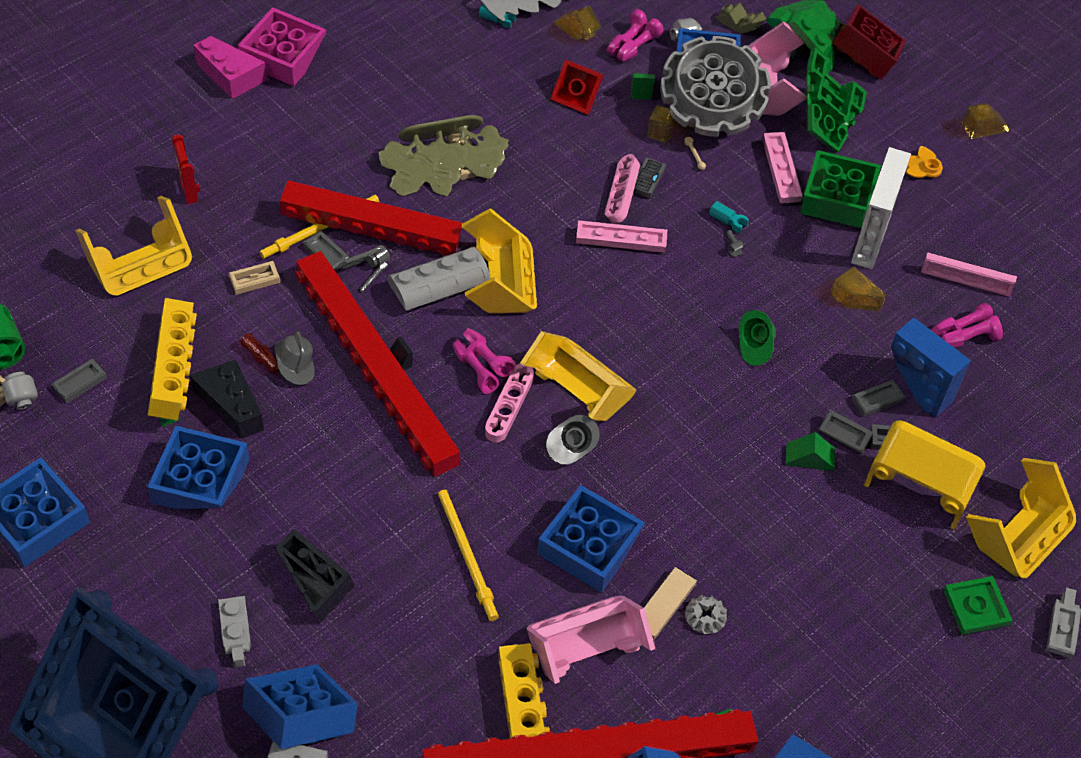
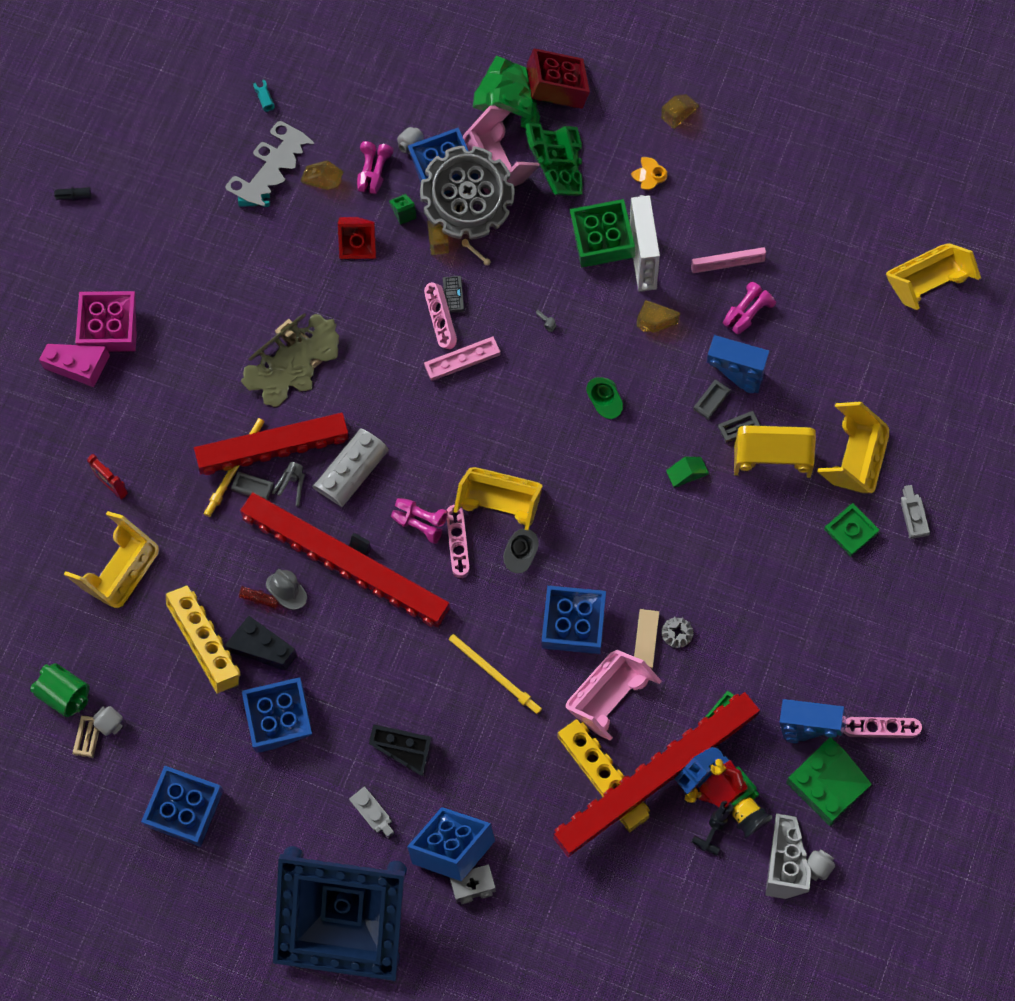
camera: 20 degrees left, 15 degrees up
(79, 381) = (141, 688): dark grey tile -> none
(255, 280) = (218, 541): tan tile -> none
(509, 262) = (396, 431): yellow windscreen -> none
(728, 216) = (530, 299): teal bar -> none
(737, 18) = (444, 105): olive slope -> none
(782, 167) = (548, 232): bright pink plate -> none
(845, 431) = (702, 440): dark grey tile -> none

